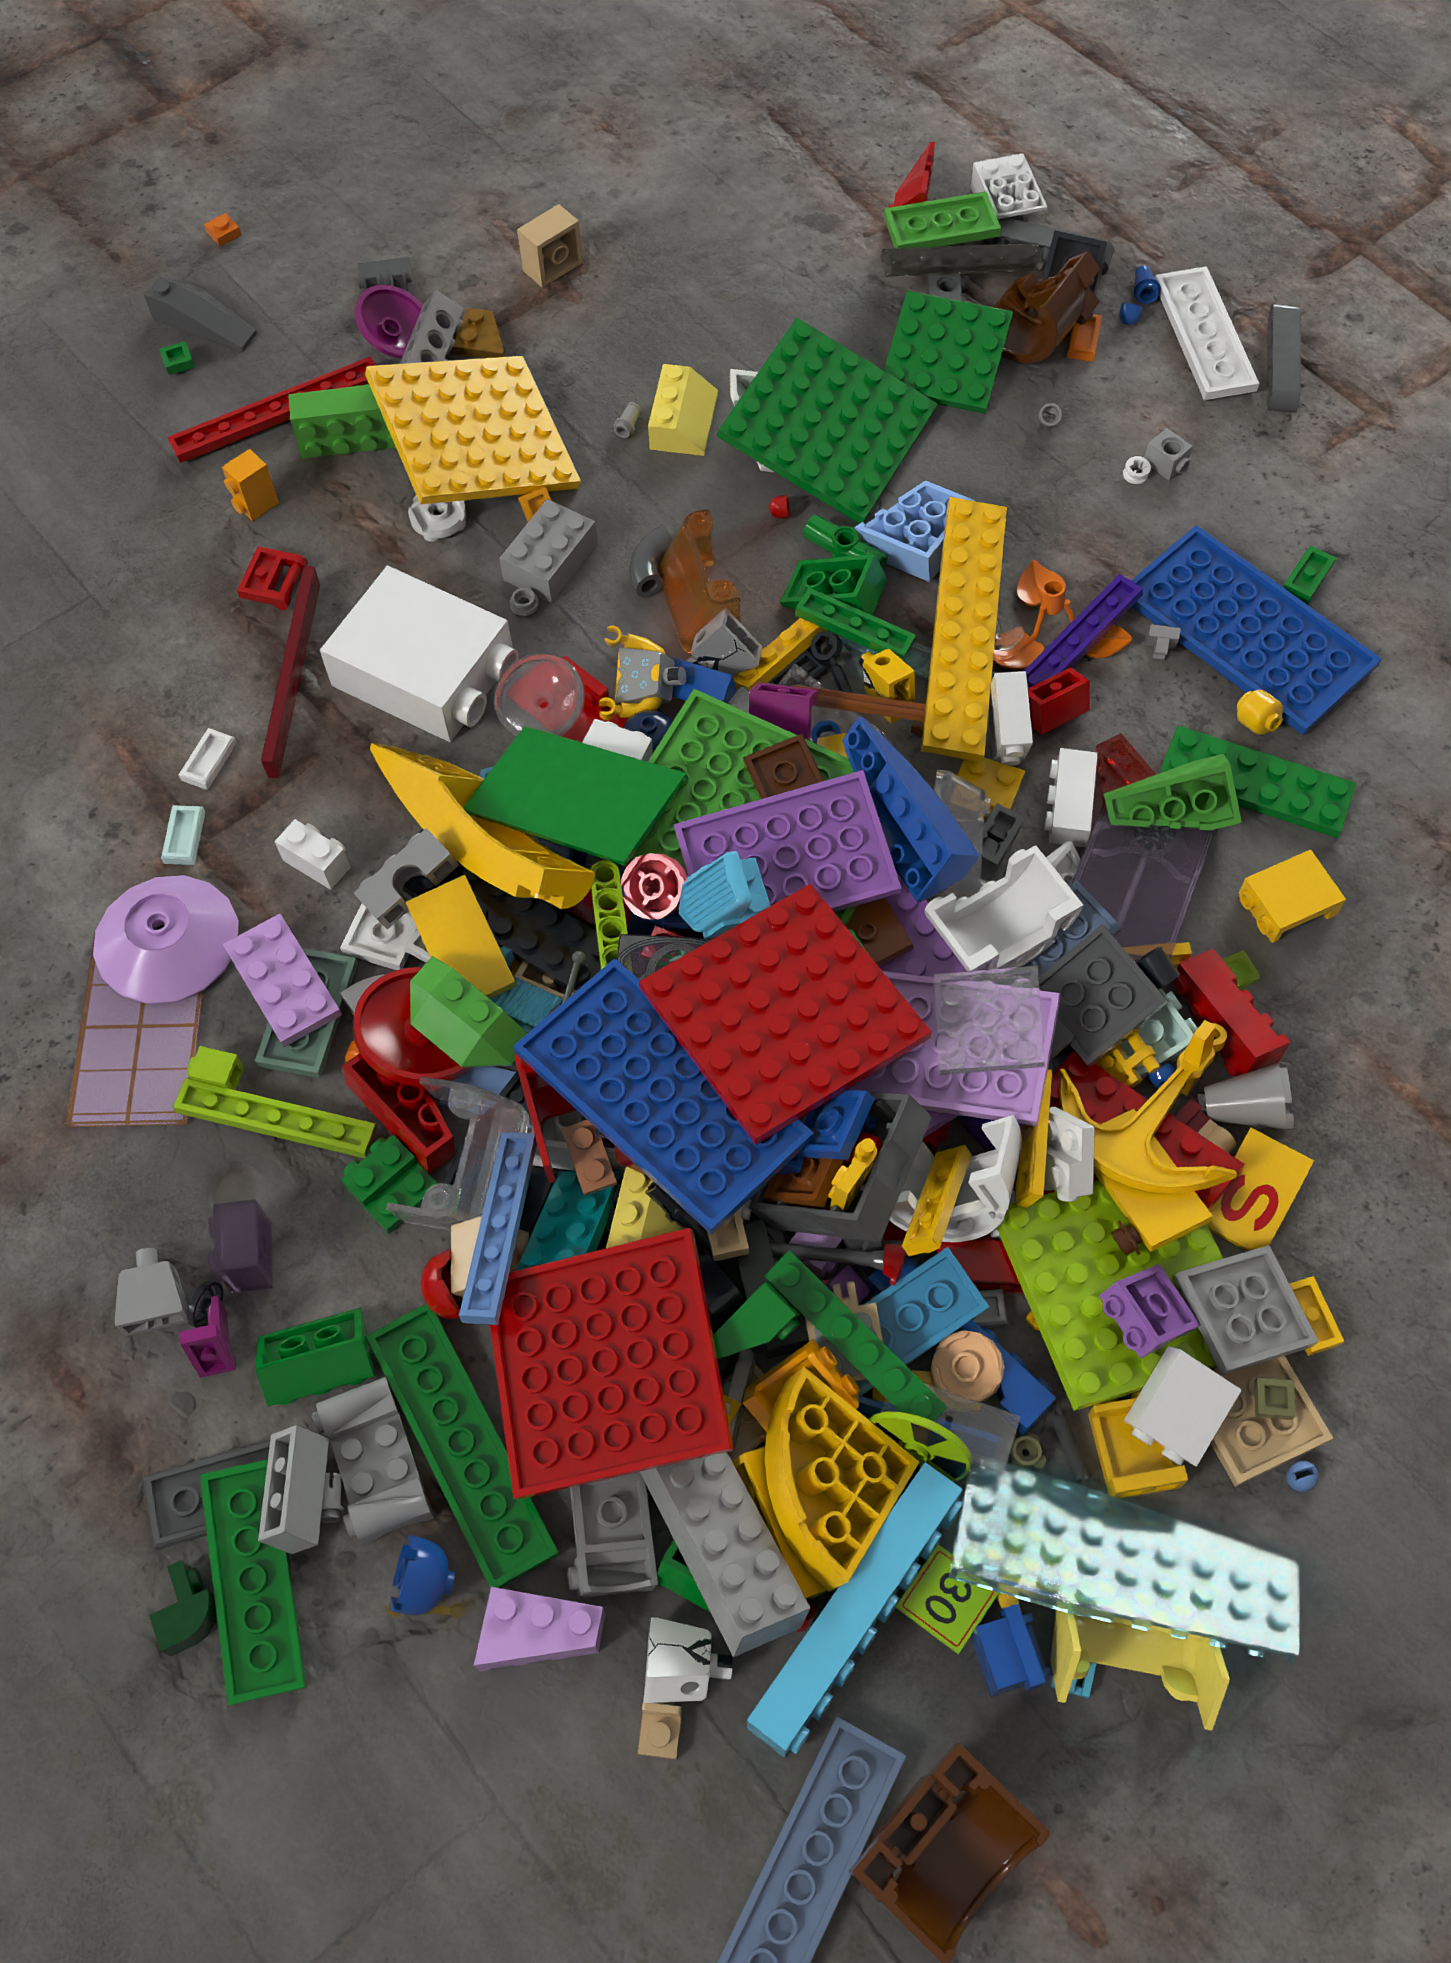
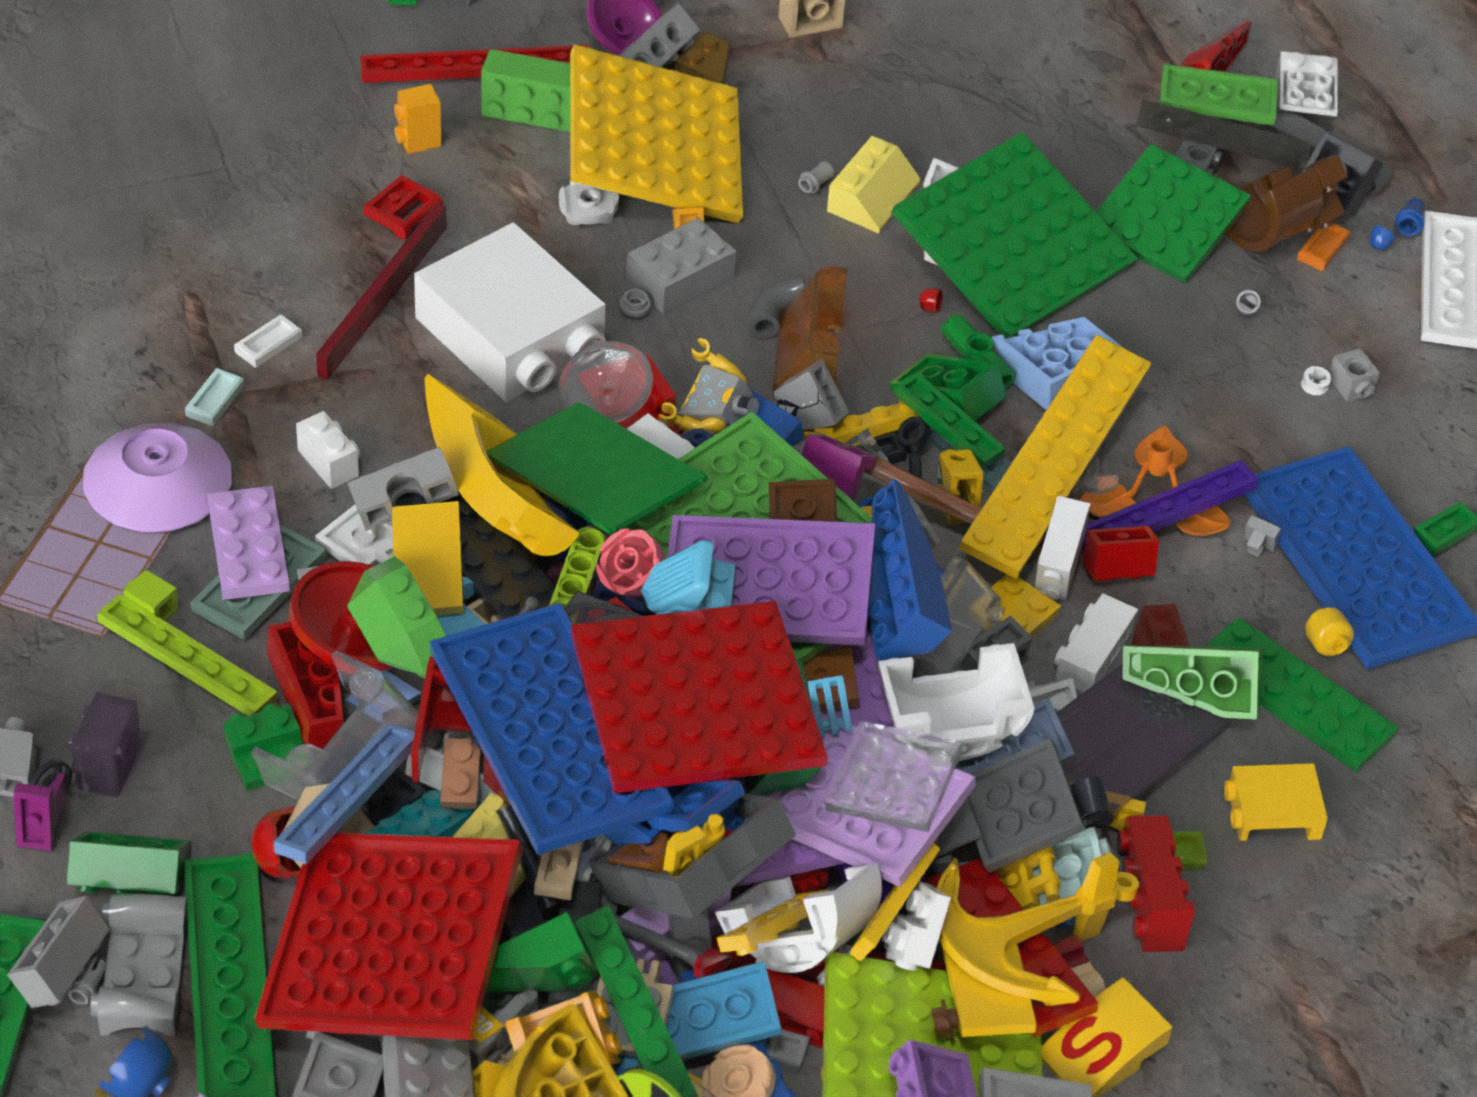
camera: 15 degrees right, 15 degrees down
(906, 978) = (833, 722): none -> medium azure tile
(1251, 1099) = (1143, 957): light grey cone -> none

